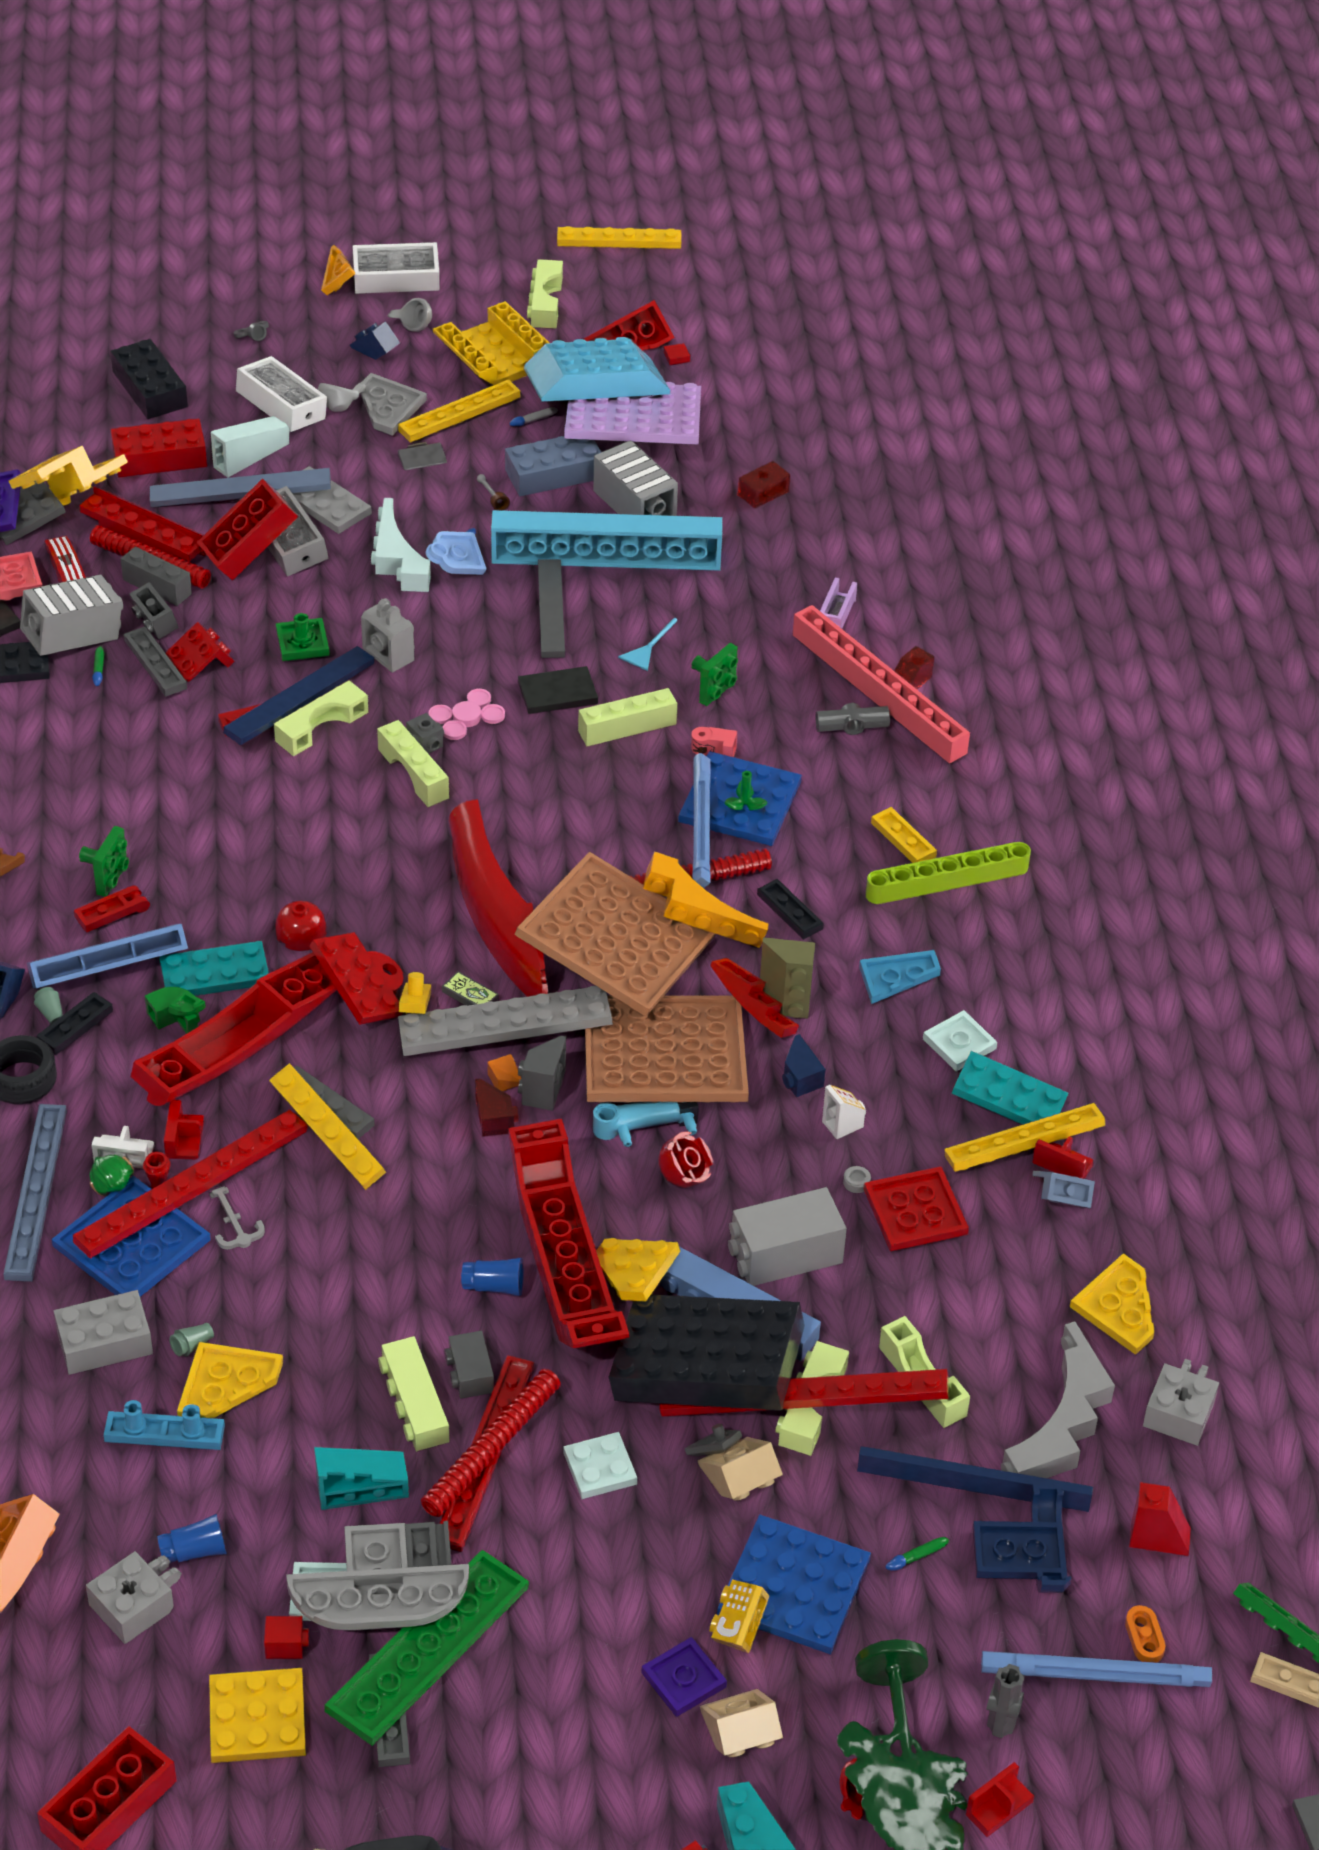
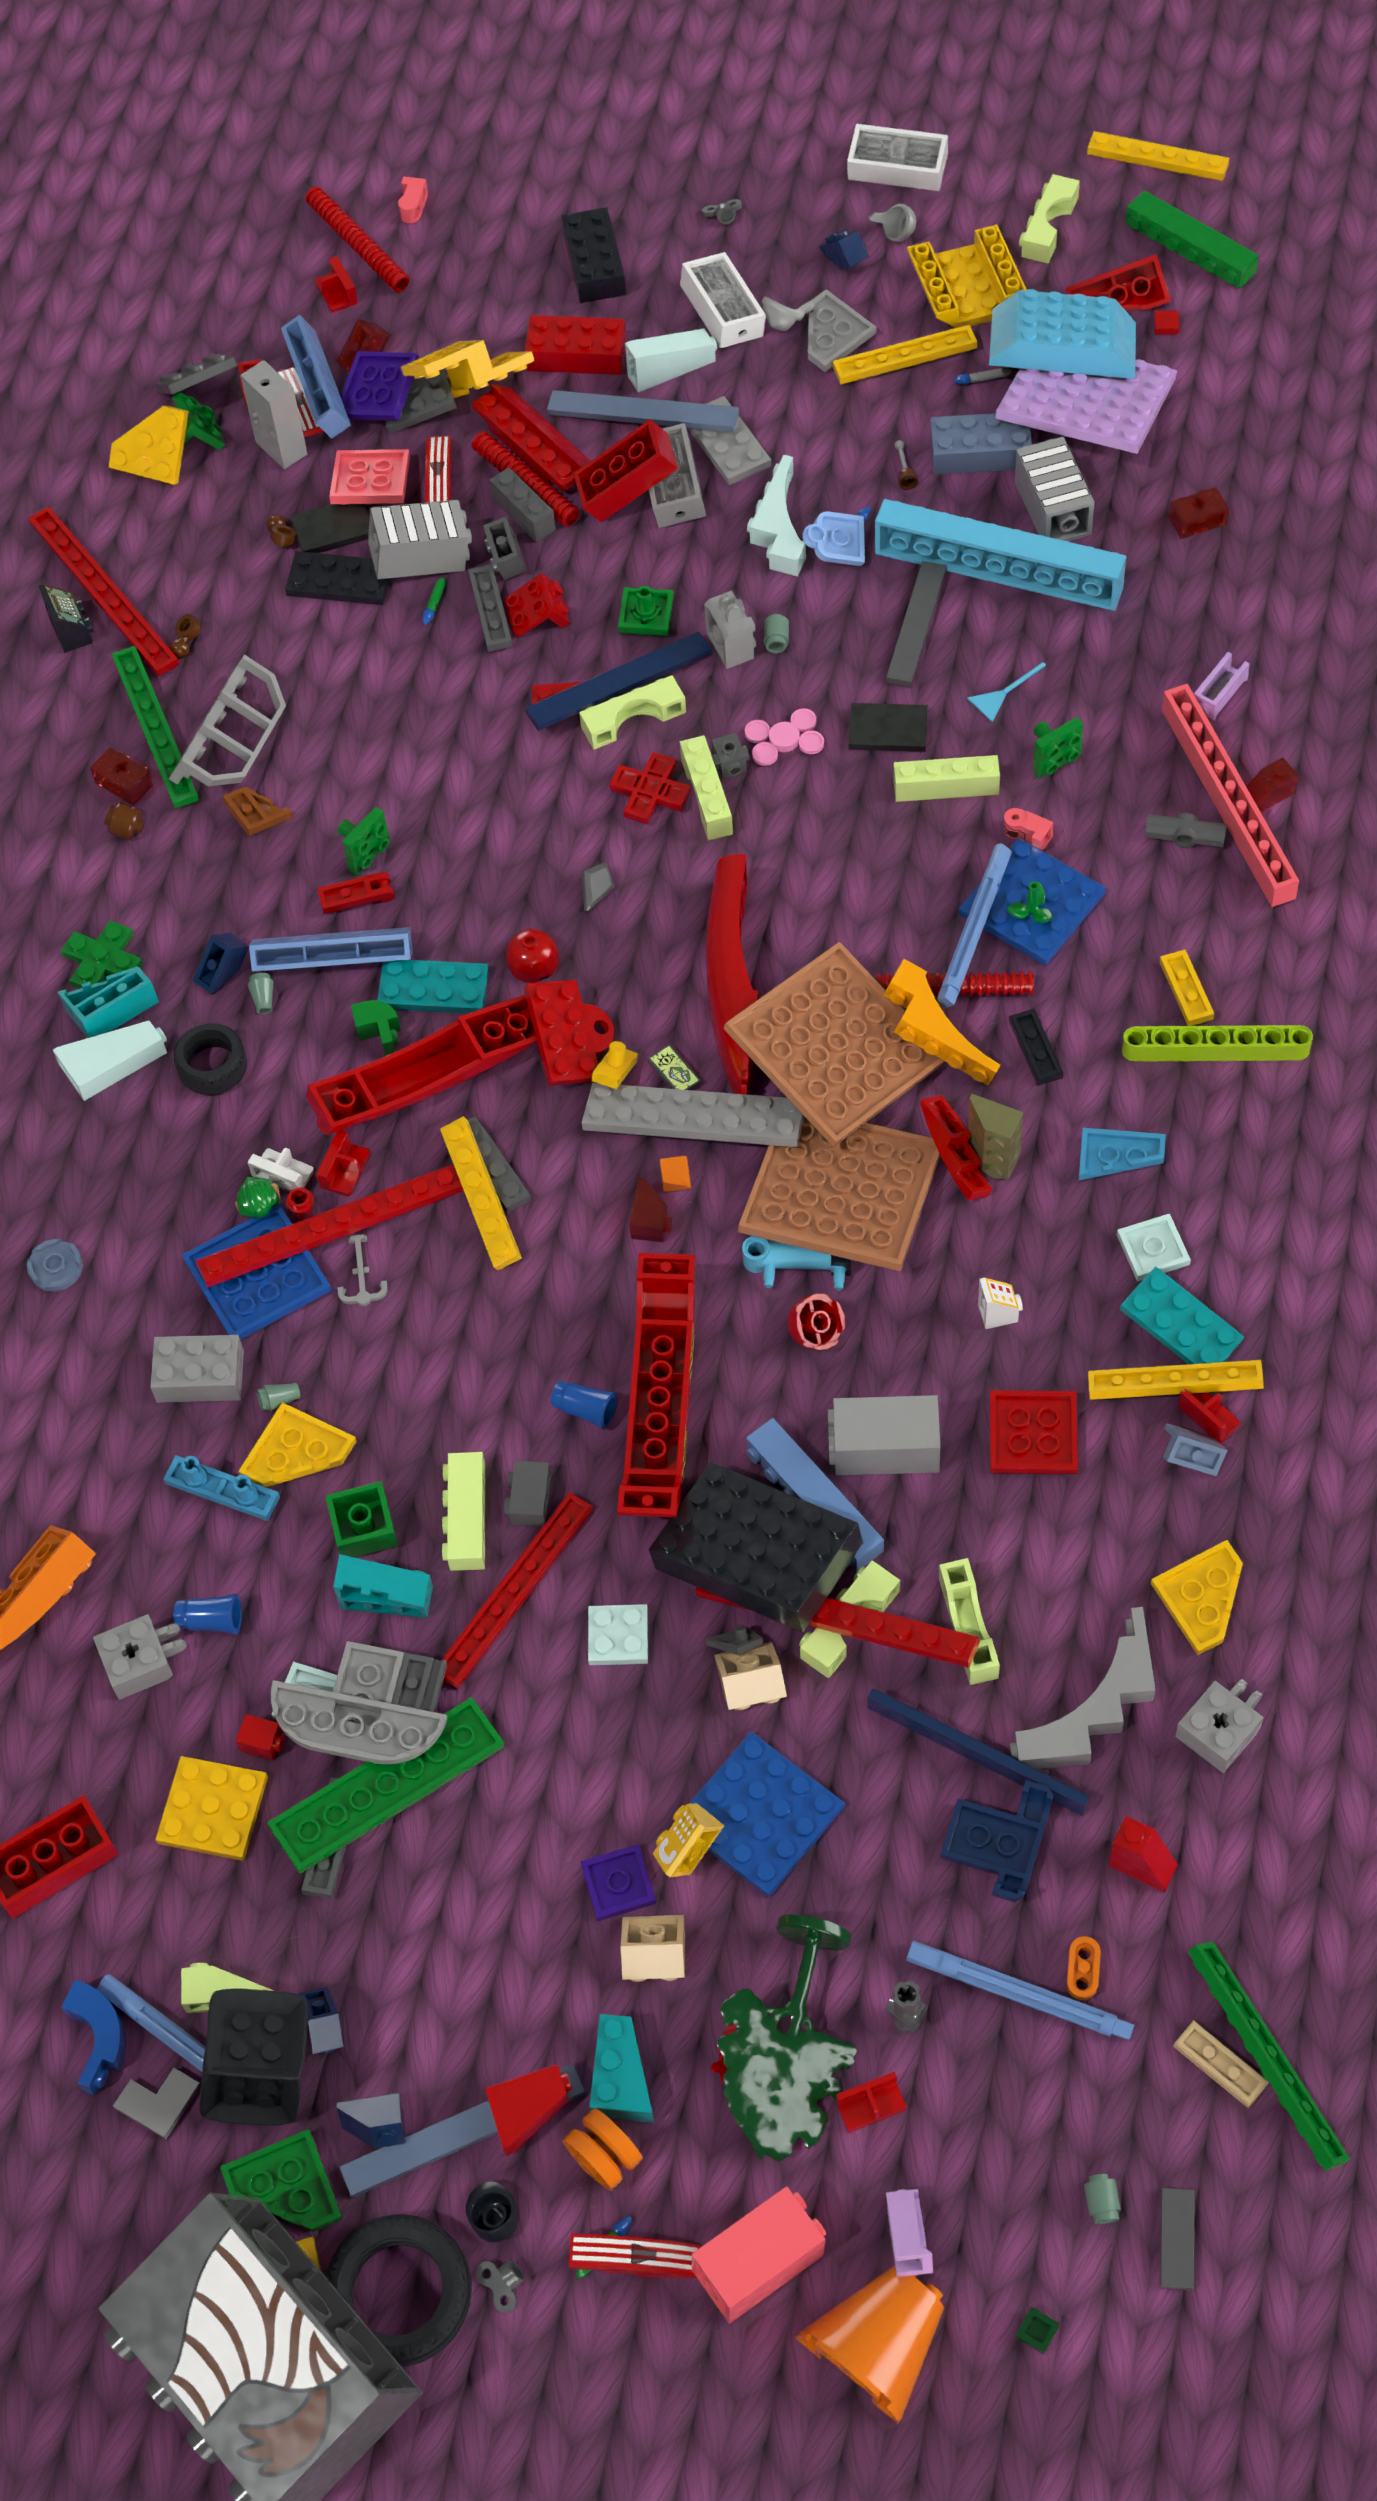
camera: 25 degrees right, 15 degrees up
(35, 1193) = (186, 1197): sand blue tile -> none
(75, 1022) = (279, 1017): black plate -> none
(186, 1005) = (385, 1026): green tile -> none
(317, 1420) = (361, 1520): none -> green brick
(337, 271) = (836, 148): light orange wing -> none
(339, 858) = (596, 884): none -> dark grey piece
(360, 774) = (650, 788): none -> red plate
(421, 455) = (847, 404): flat silver piece -> none
(429, 635) = (776, 633): none -> sand green brick
(490, 1443) = (515, 1587): red piece -> none
(543, 1074) = (709, 1187): dark grey slope -> none
(636, 1265) = (721, 1429): yellow plate -> none
(674, 290) = (1191, 239): none -> green brick
(802, 1069) = (975, 1241): dark blue slope -> none
(855, 1178) = (986, 1380): light grey tile -> none
(917, 1553) = (871, 1819): green piece -> none
(1245, 1824) = (1102, 2199): none -> sand green brick

